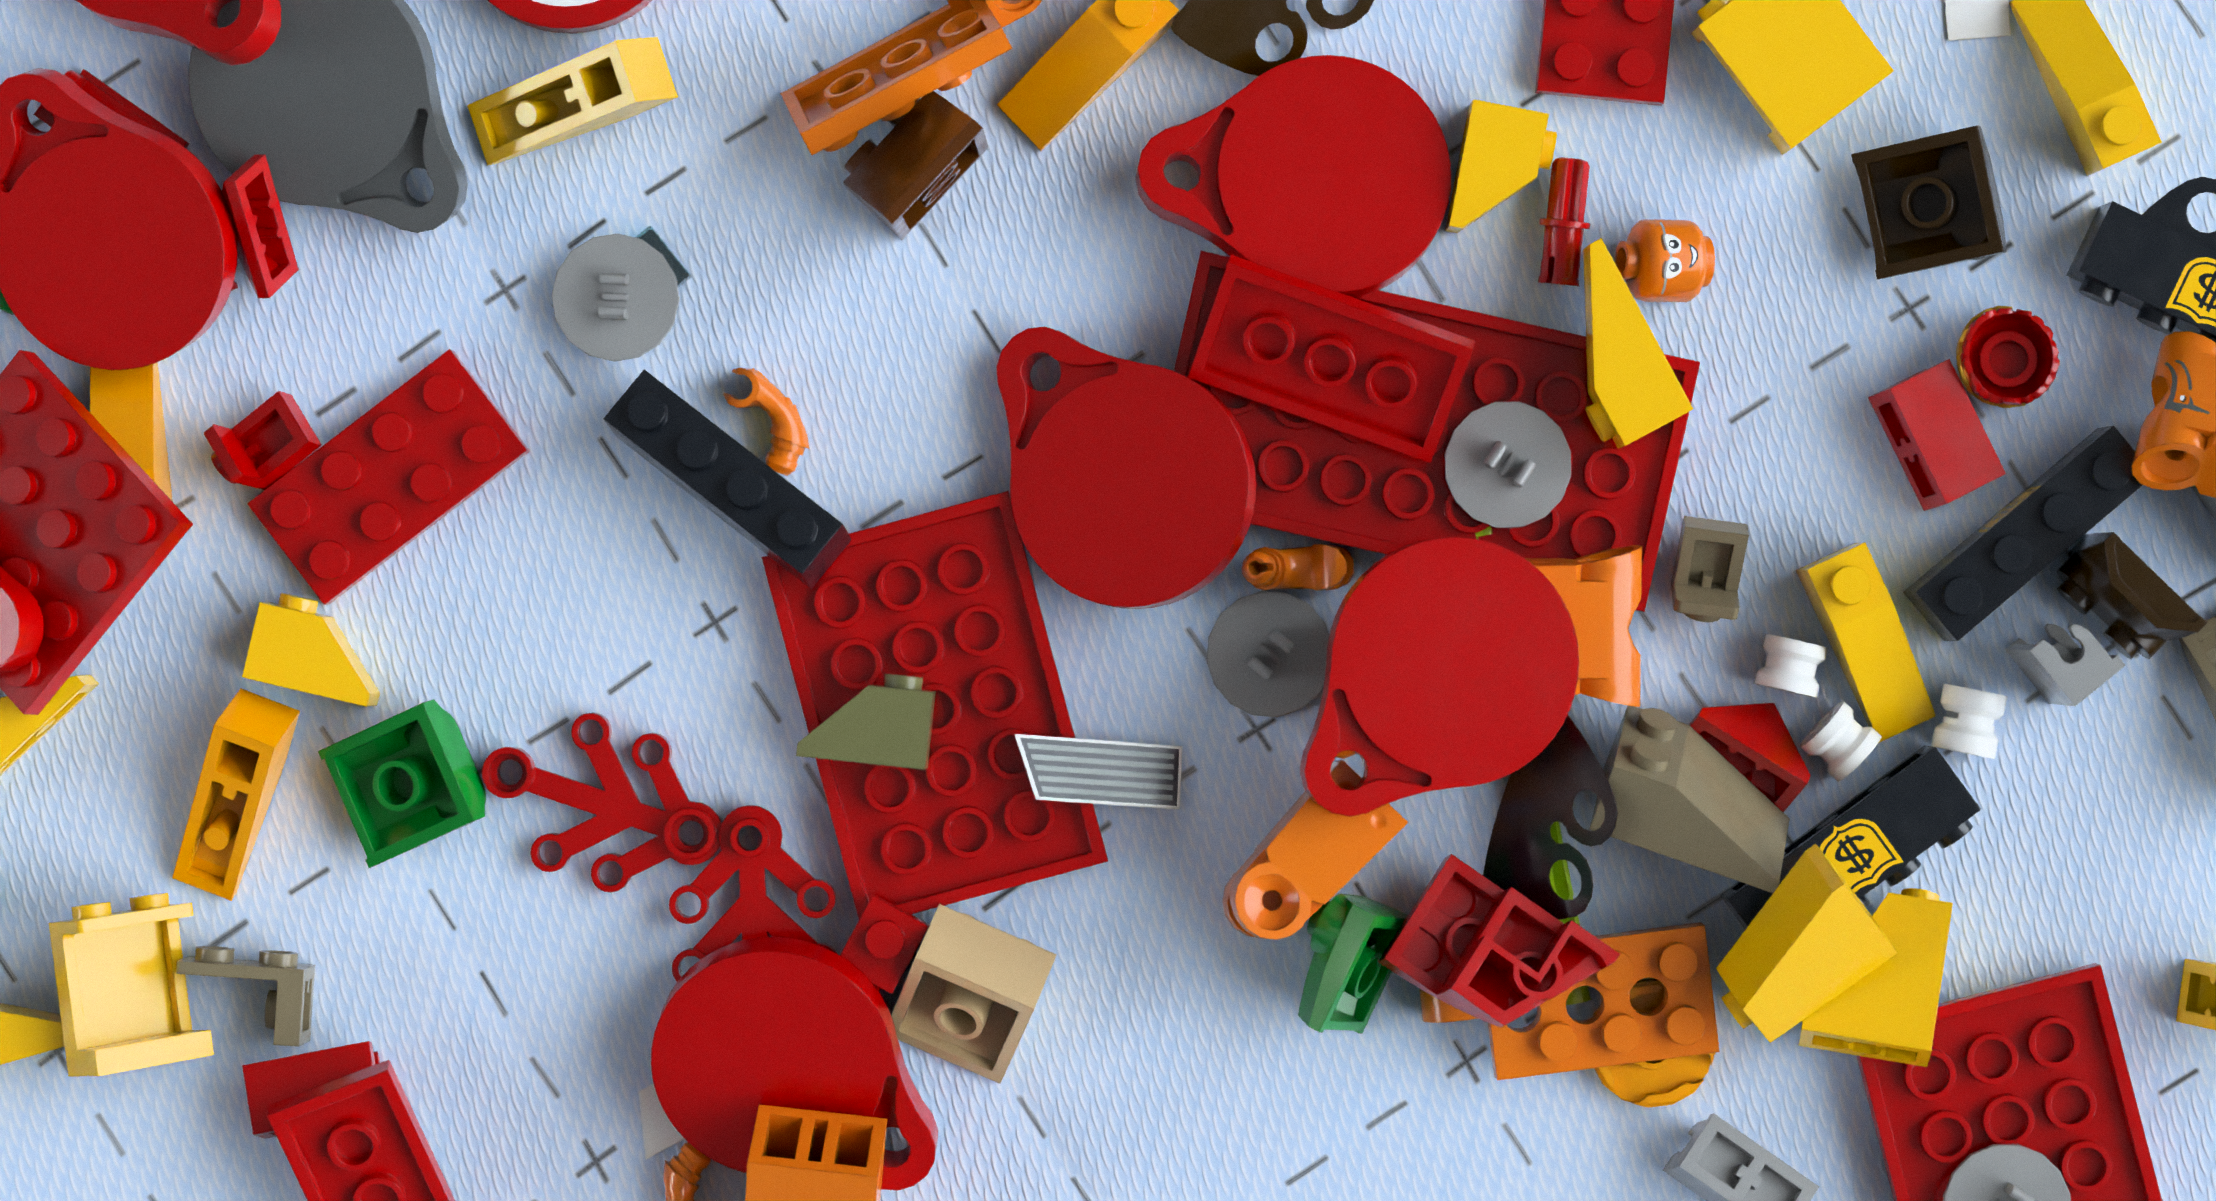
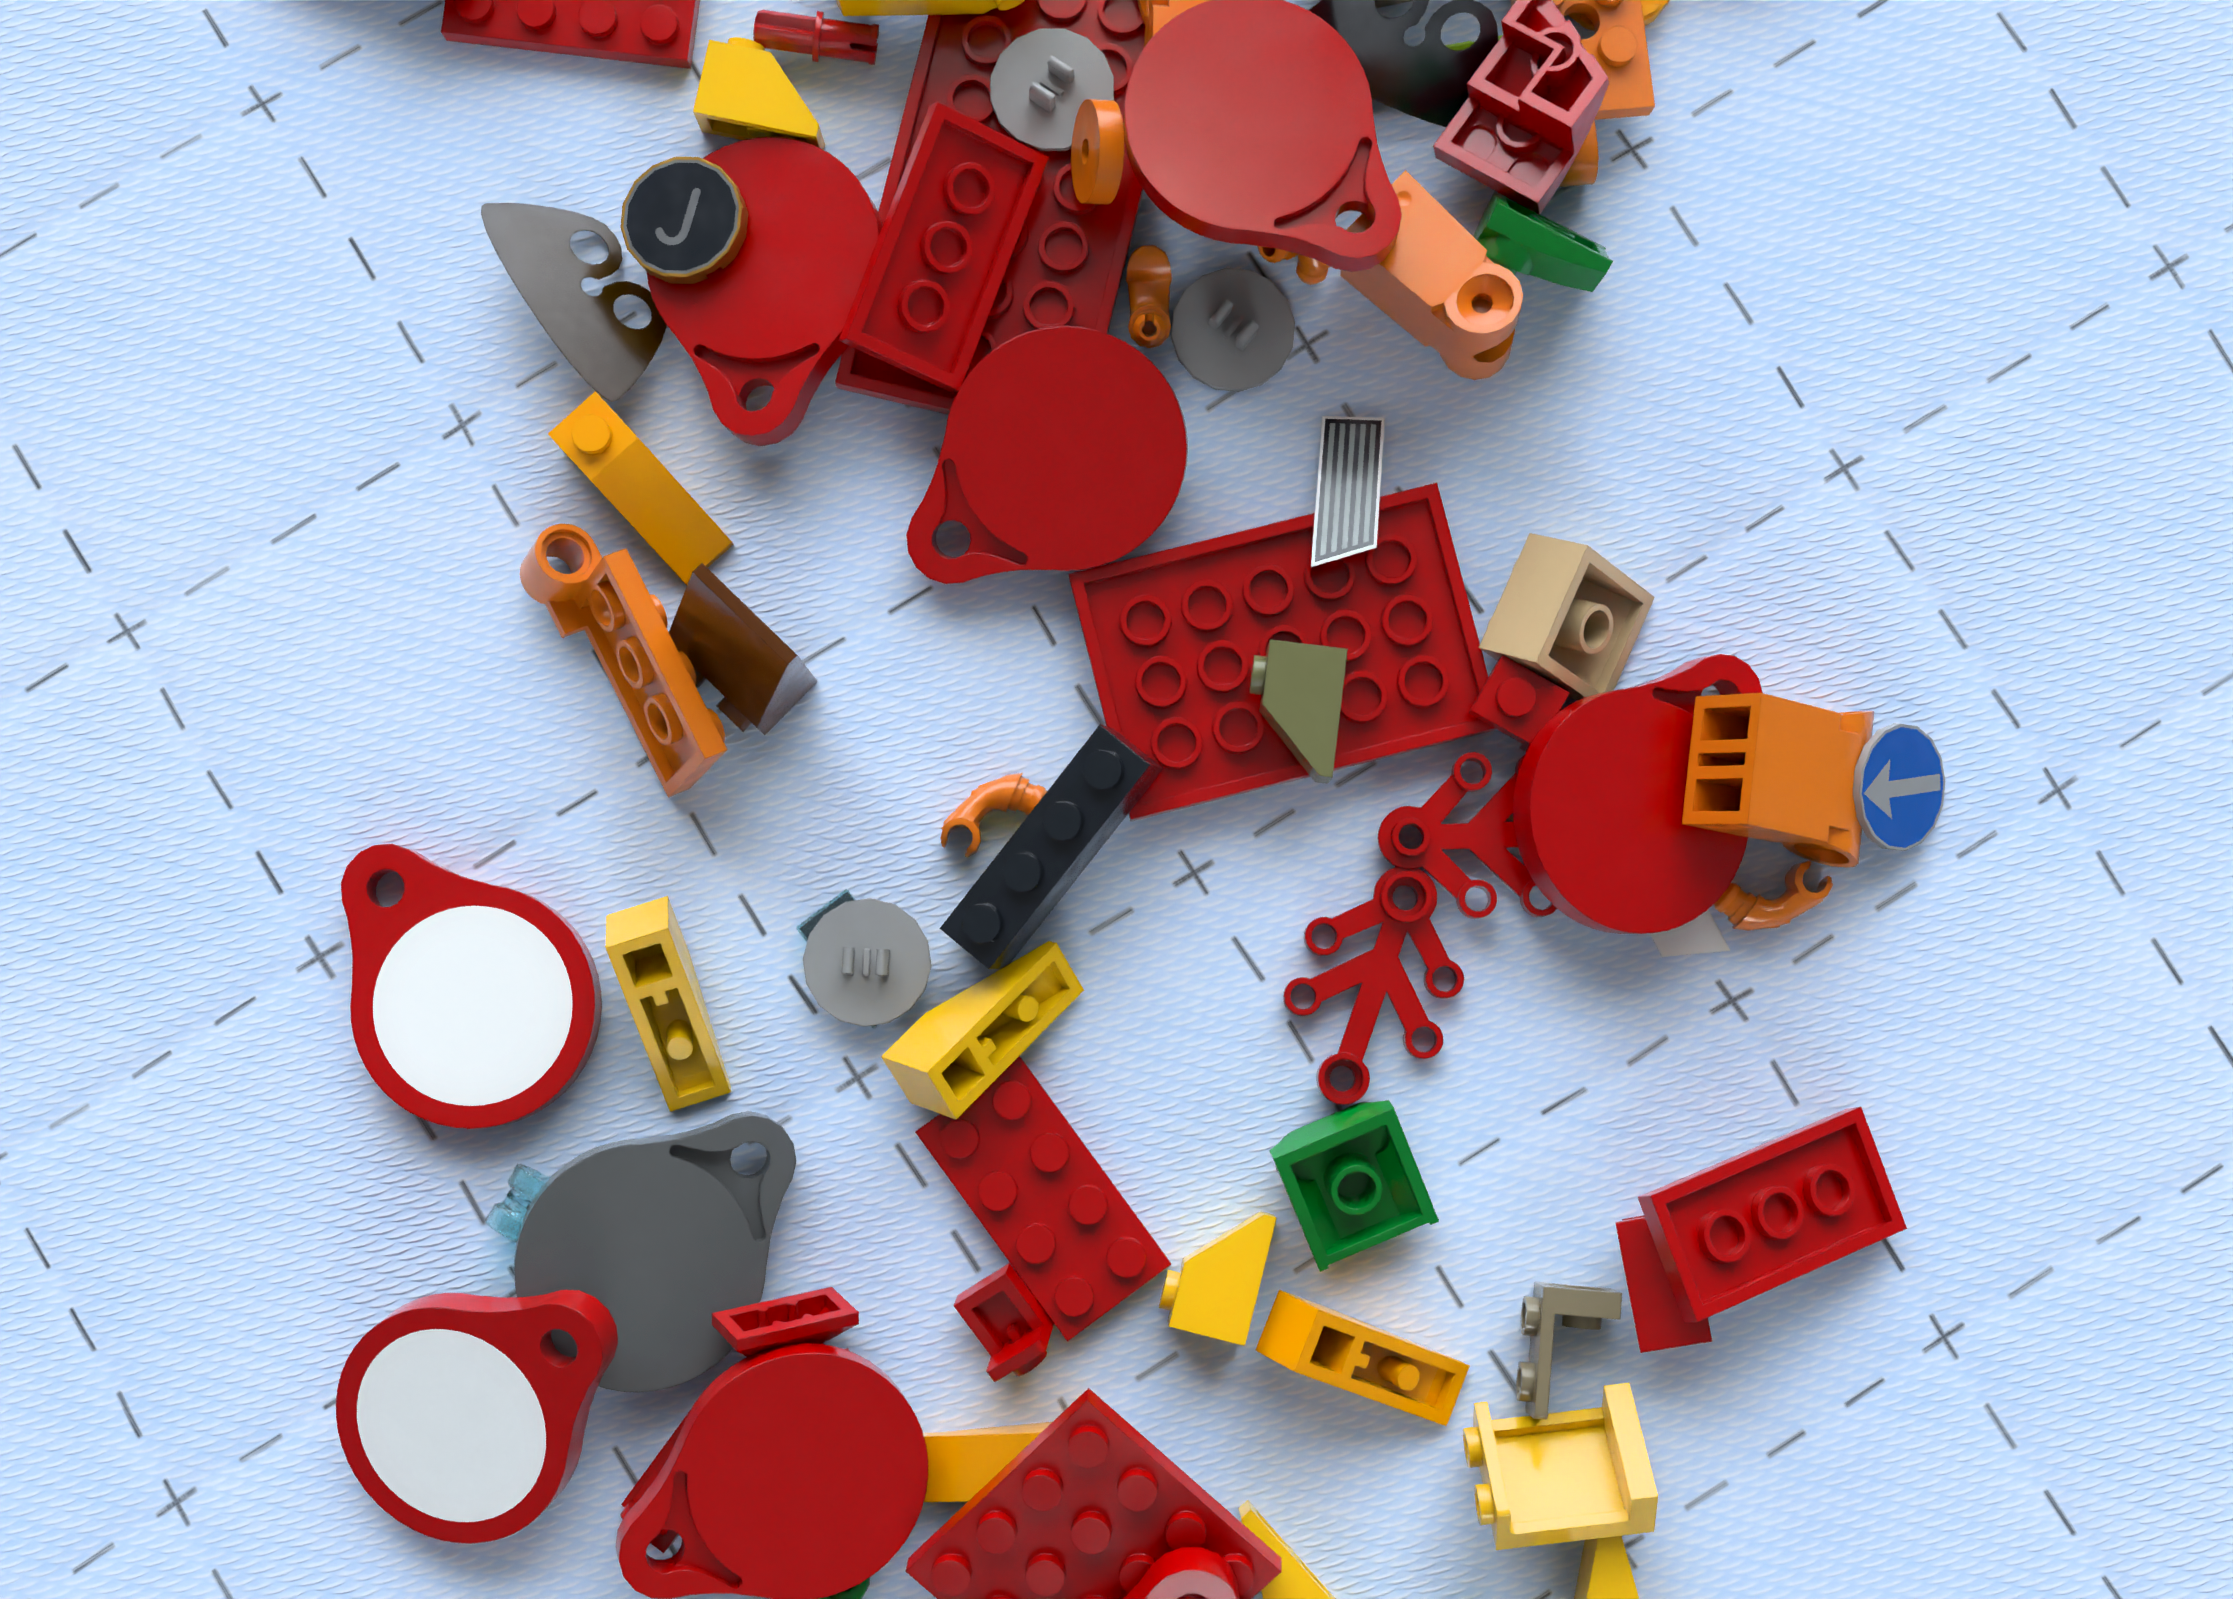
camera: 90 degrees left, 5 degrees down
(547, 412) = (981, 1031): none -> yellow slope
(1361, 93) = (684, 220): none -> black tile
(1431, 511) = (1097, 151): none -> orange piece

